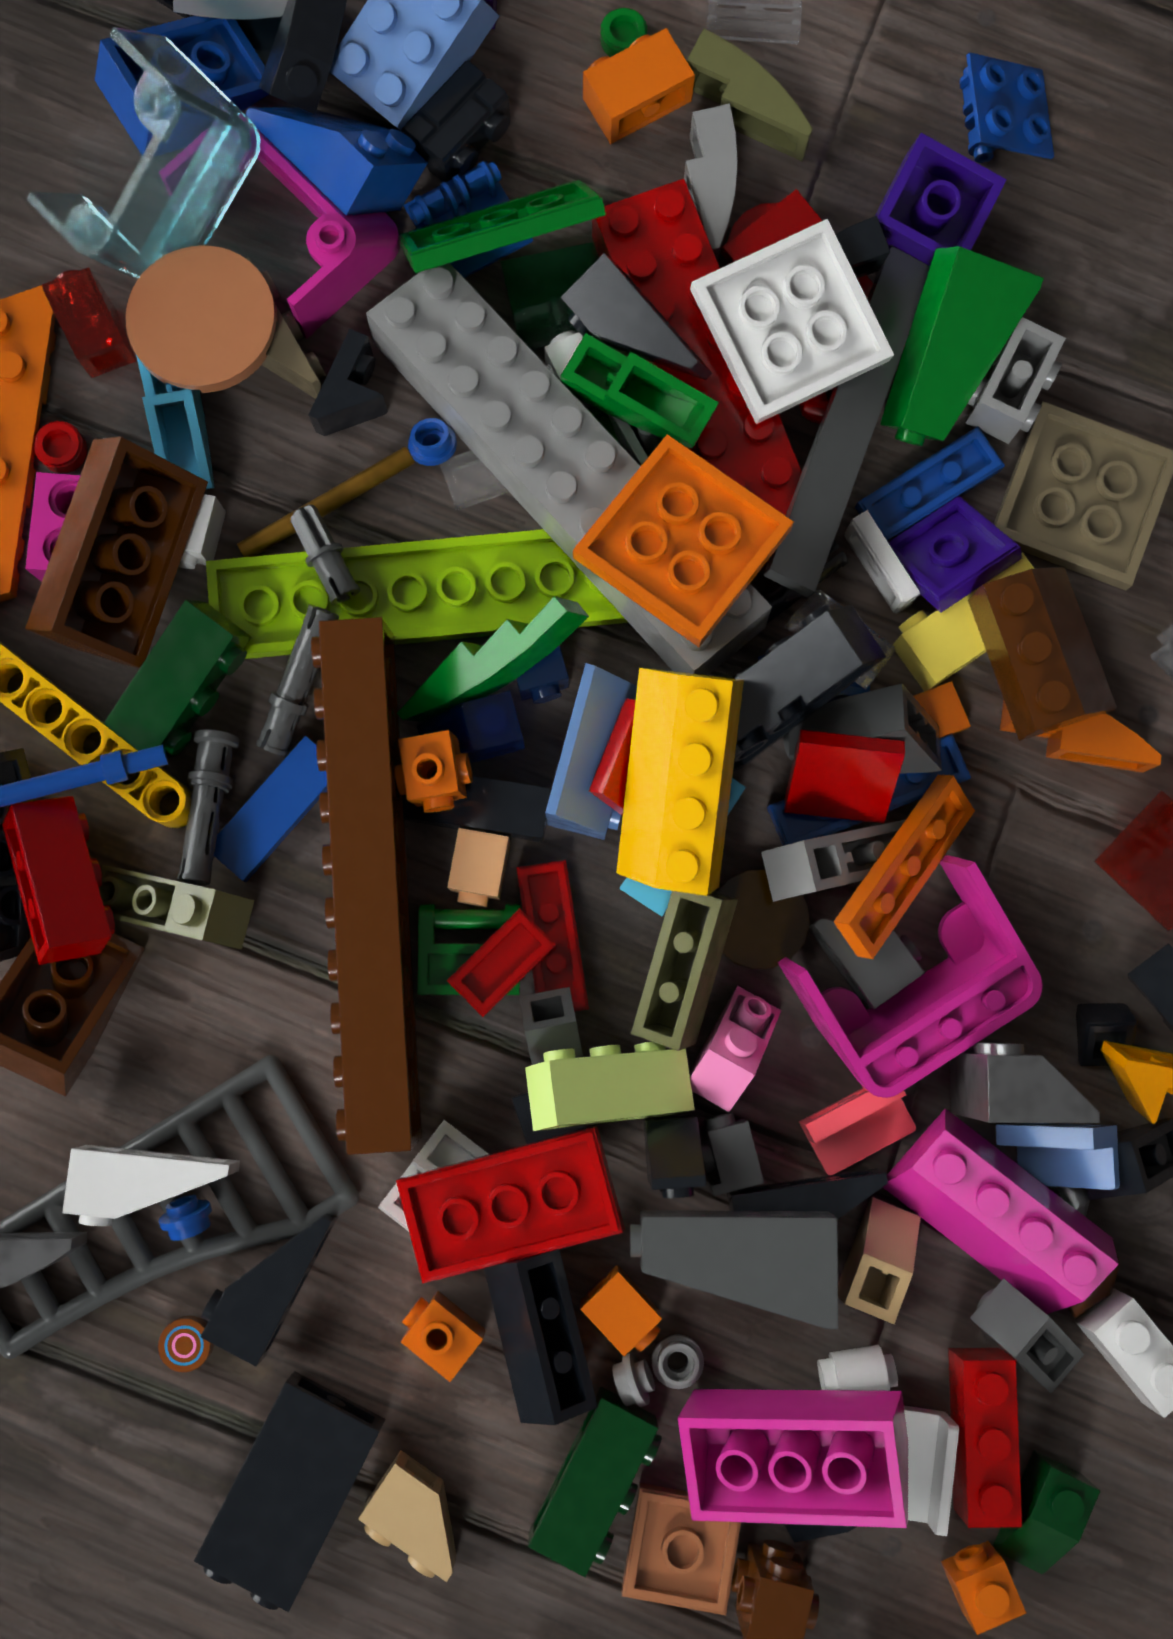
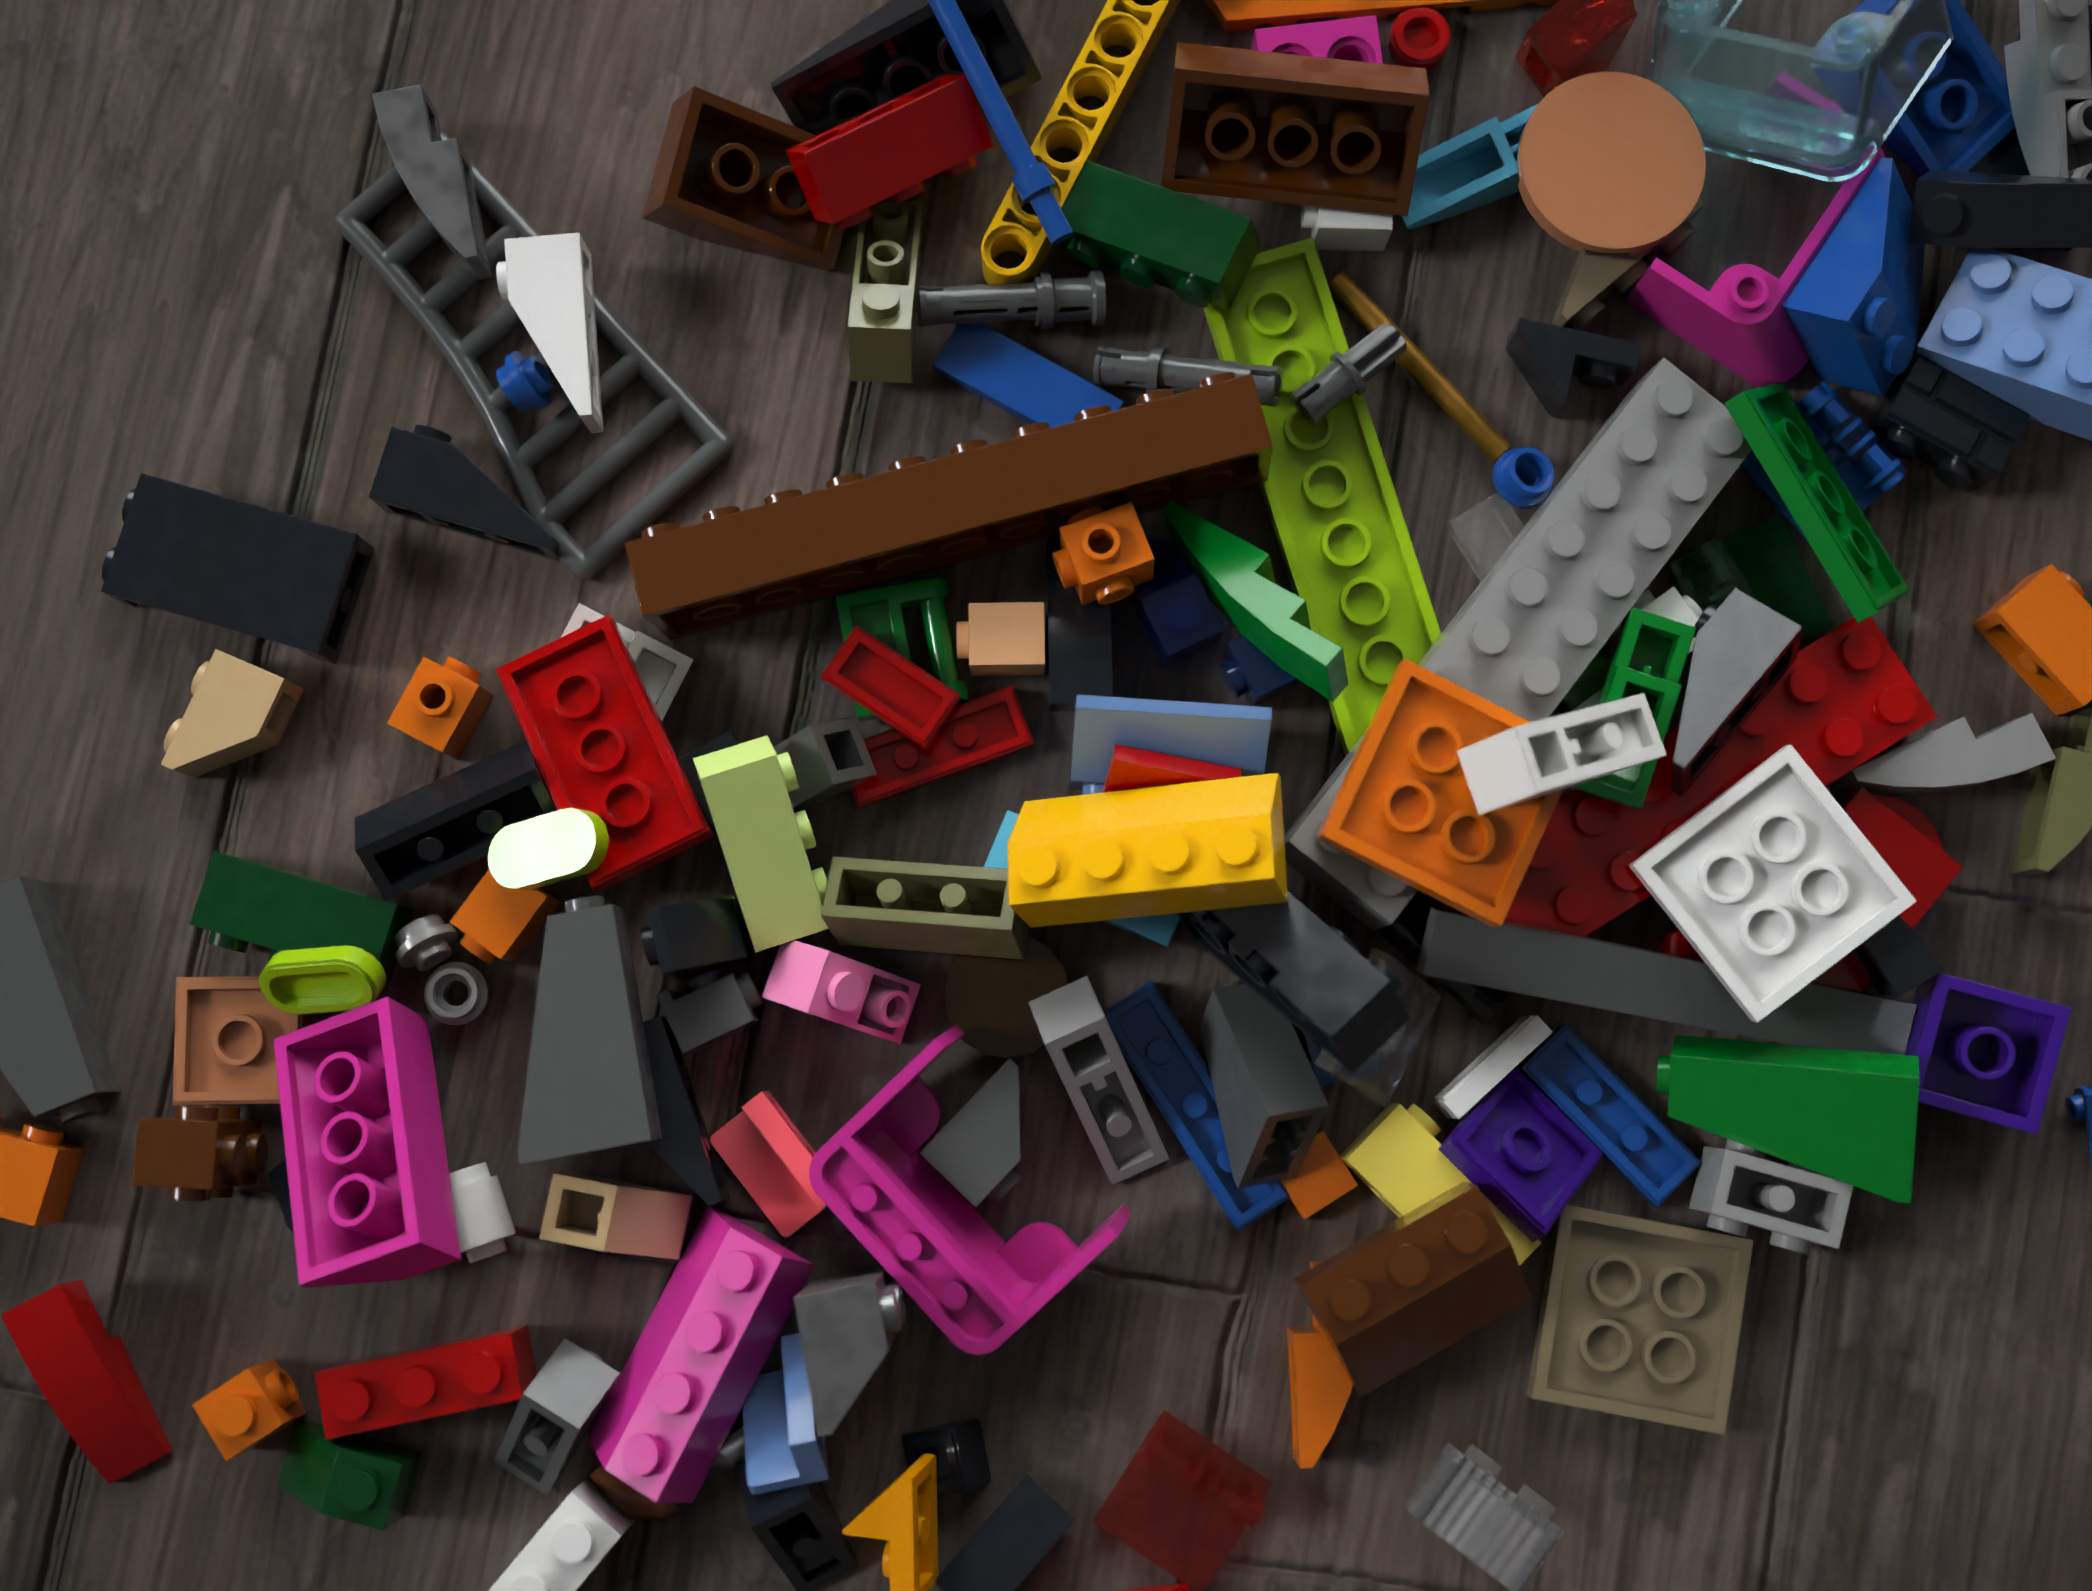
camera: 80 degrees right, 0 degrees up
(182, 1346) = (379, 410): dark orange tile -> none
(584, 1263) = (548, 849): none -> tile
(652, 1471) = (322, 979): none -> lime tile
(673, 448) = (1560, 752): none -> white slope
(843, 776) = (1200, 1058): red tile -> none
(904, 866) = (1104, 1159): orange plate -> none
(930, 1466) = (382, 1312): white panel -> none

